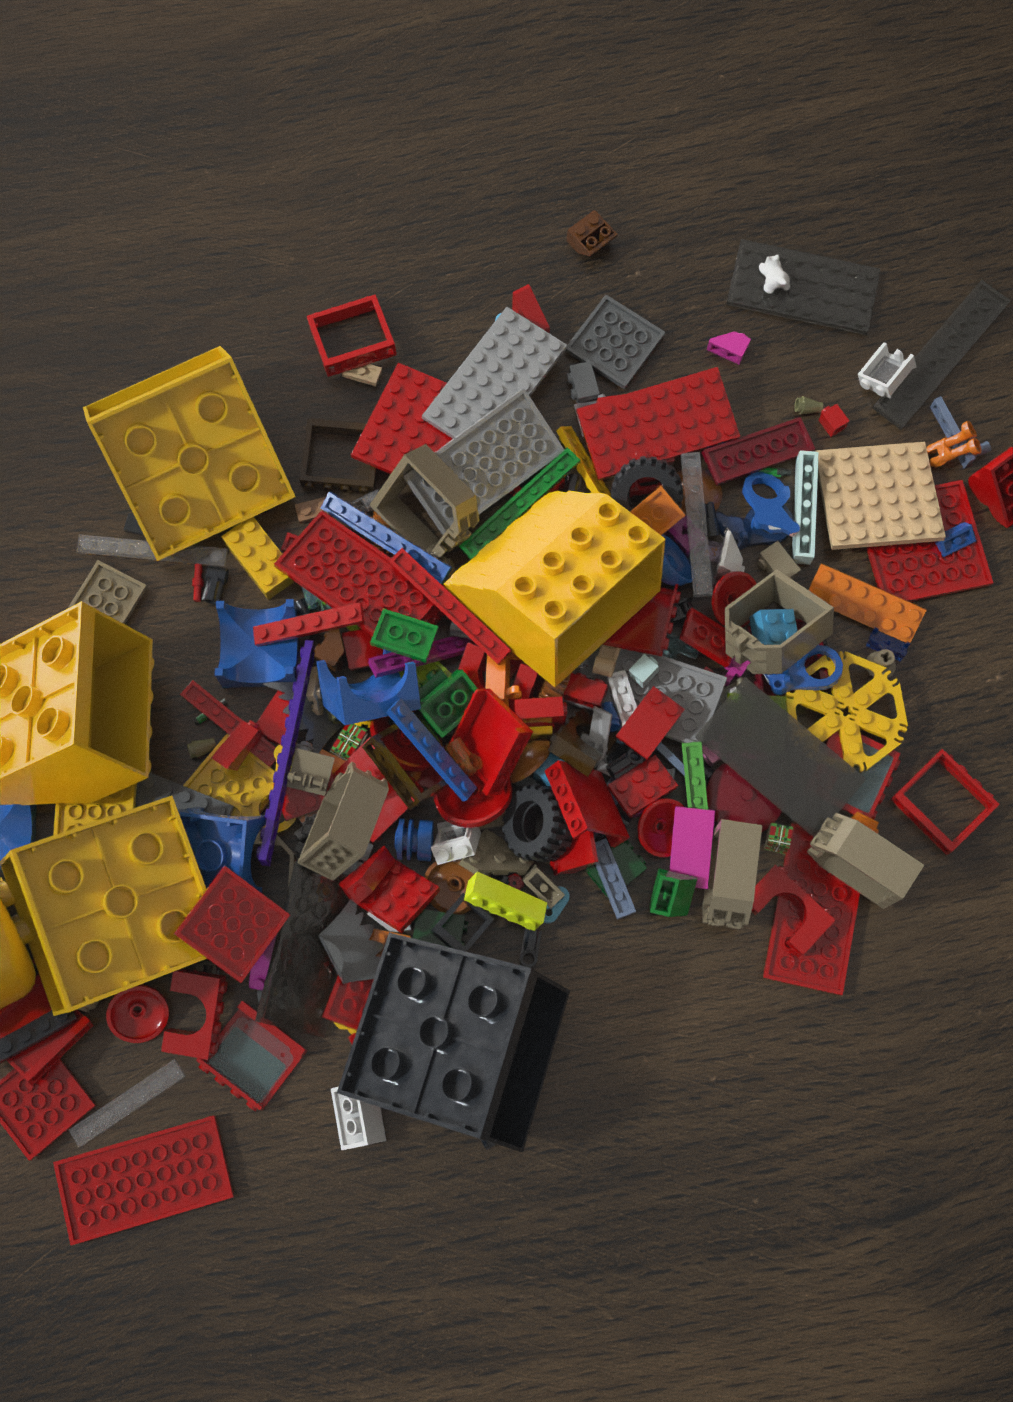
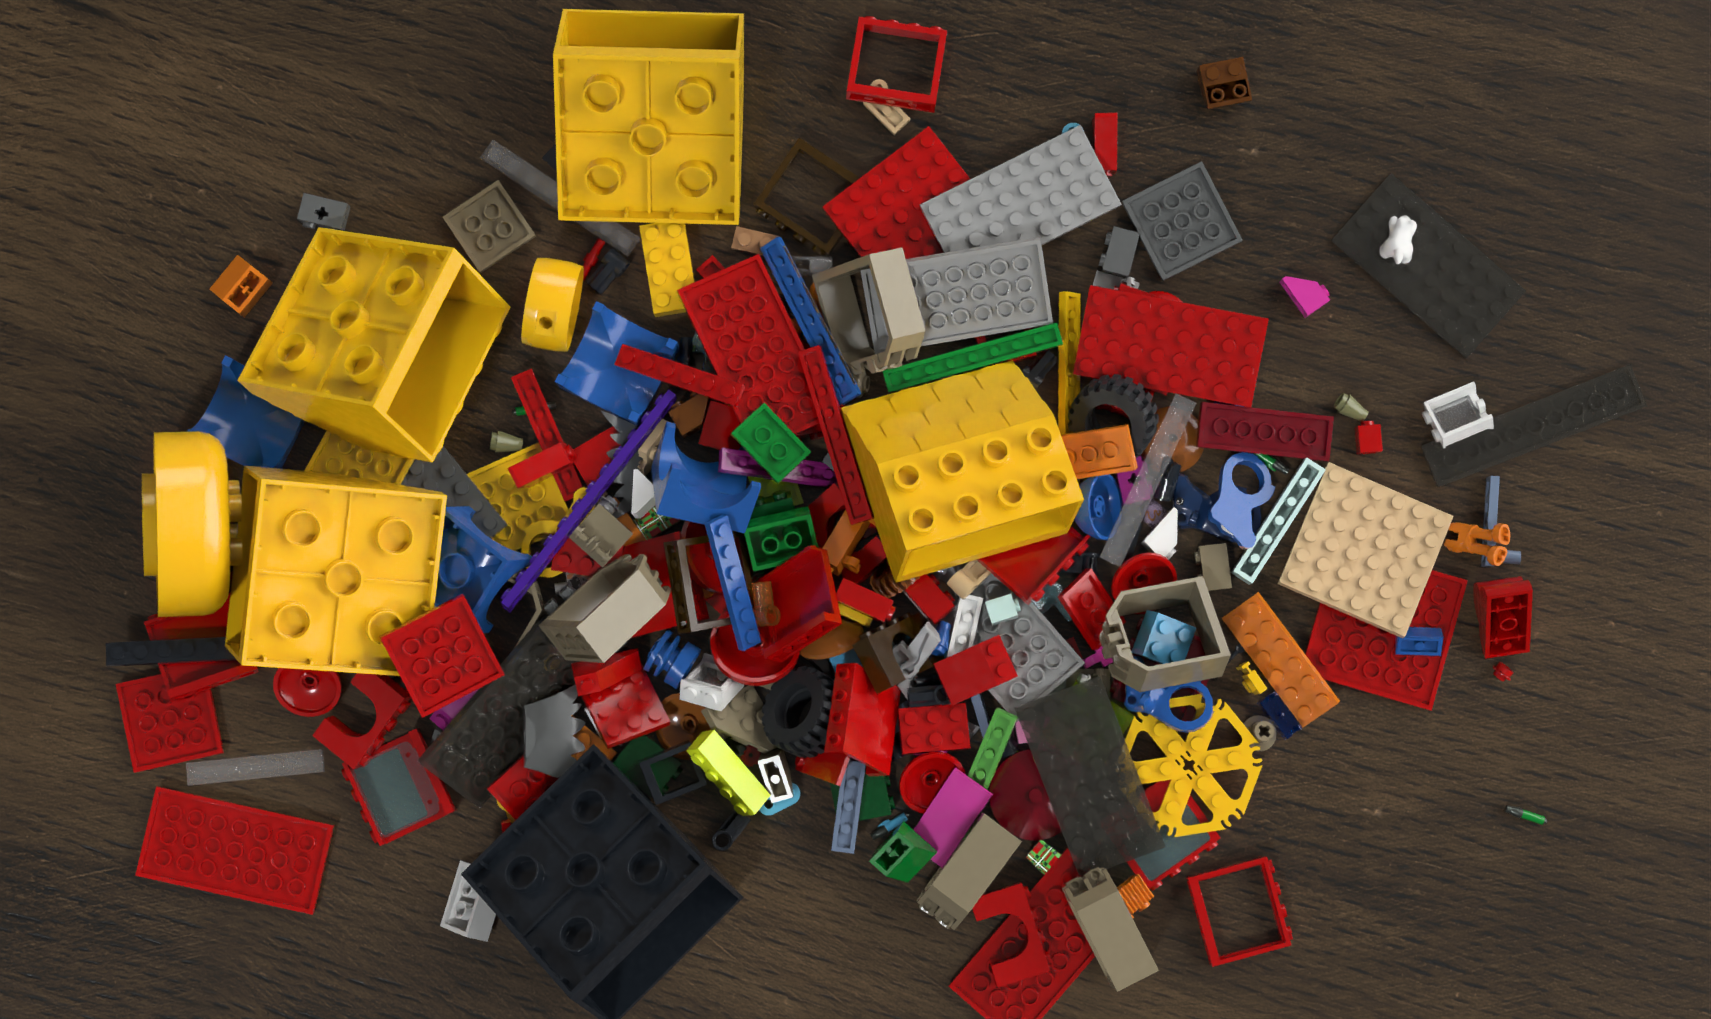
camera: 30 degrees right, 10 degrees up
(183, 622) = (552, 304): none -> yellow cylinder
(328, 726) = (642, 495): none -> white slope
(648, 880) = (888, 825): none -> piece
(853, 626) = (1252, 681): none -> yellow plate

